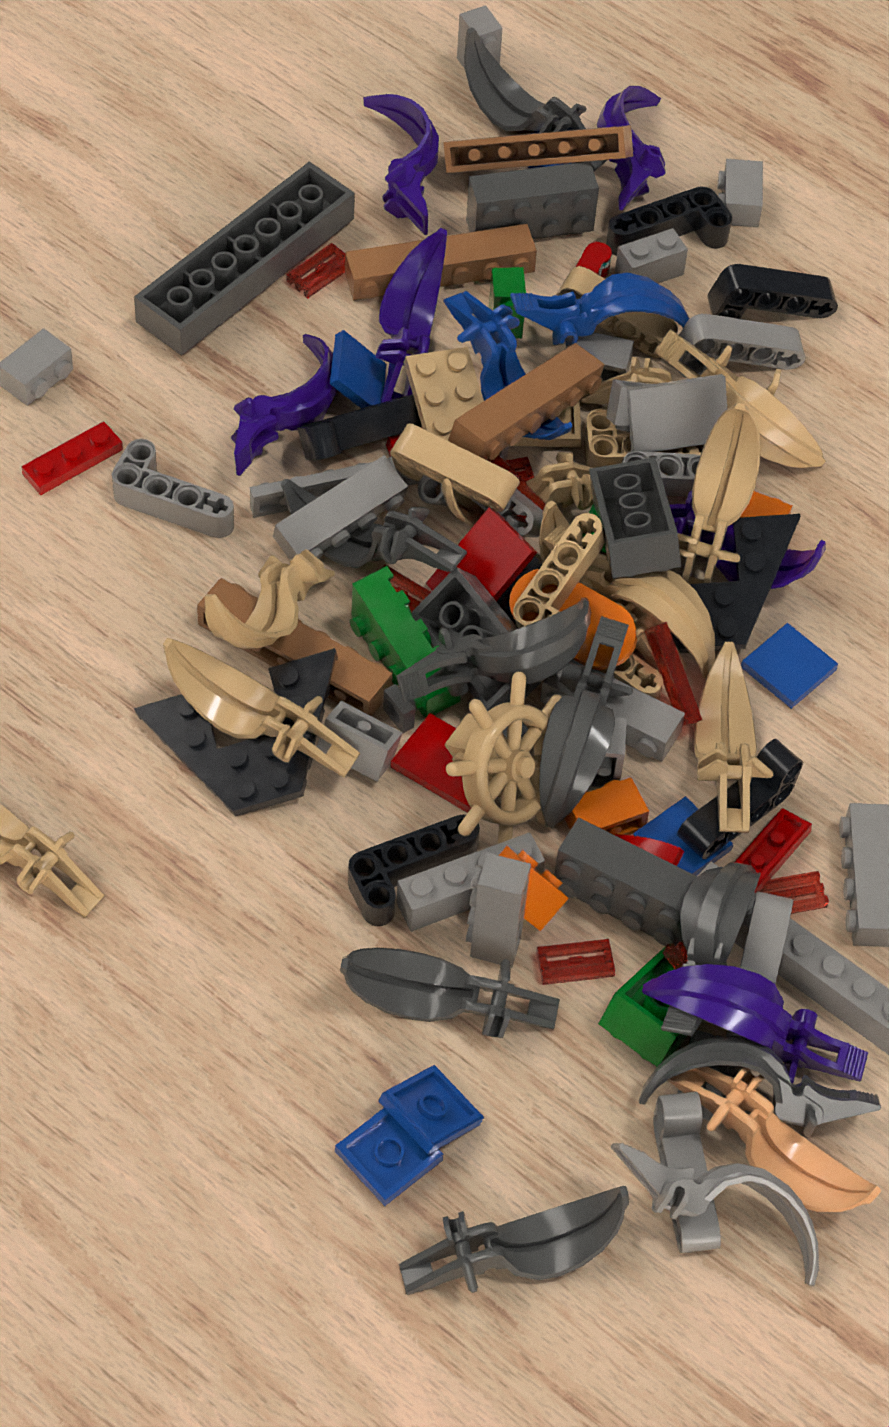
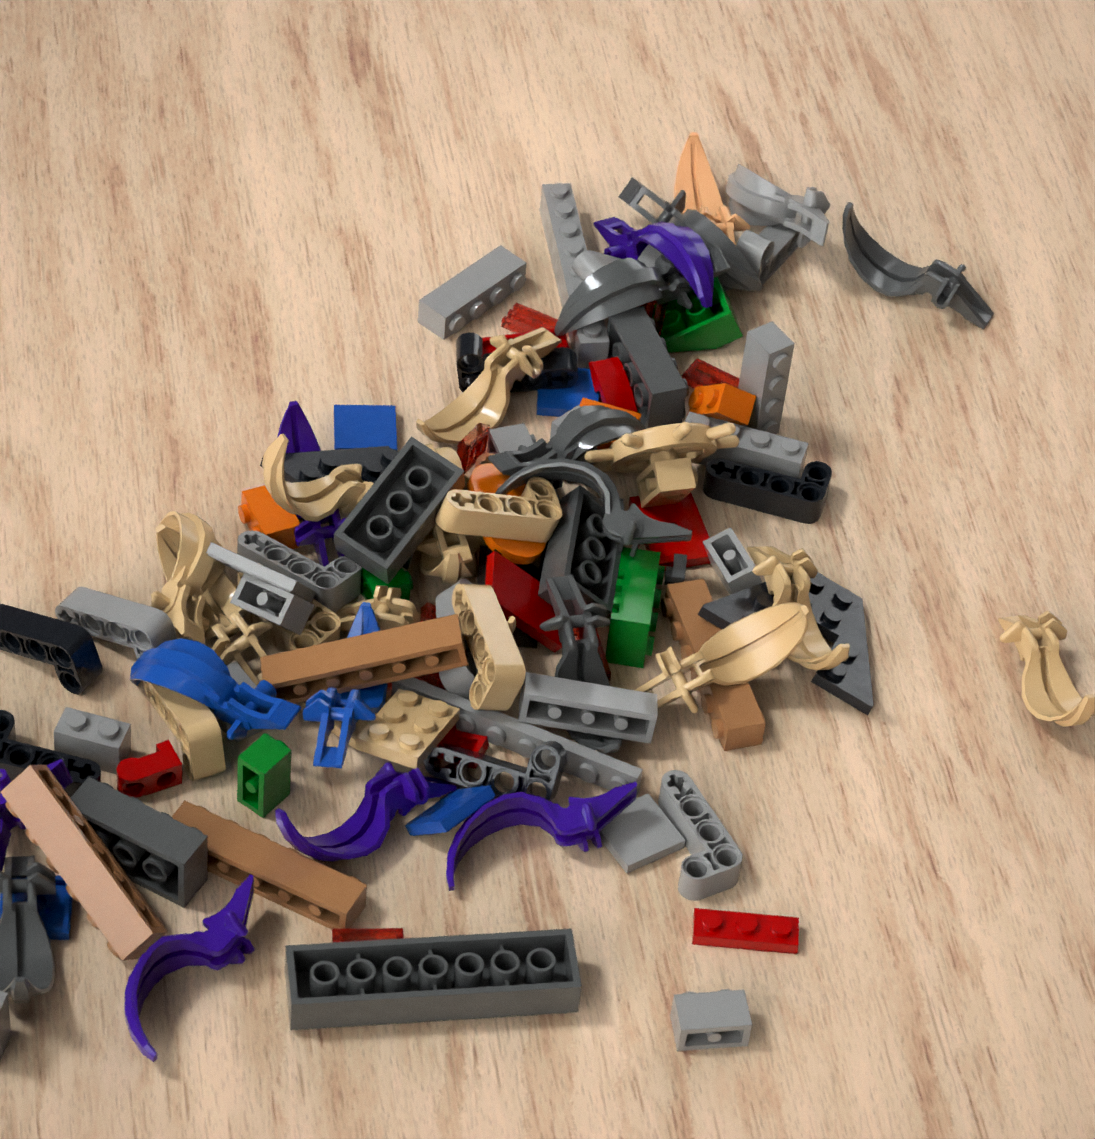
camera: 140 degrees left, 10 degrees down
(215, 469) = (641, 835): none -> light grey tile
(385, 1156) = (942, 367): blue plate -> none
(431, 1109) = (895, 365): blue tile -> none
(437, 990) = (813, 383): dark grey piece -> none

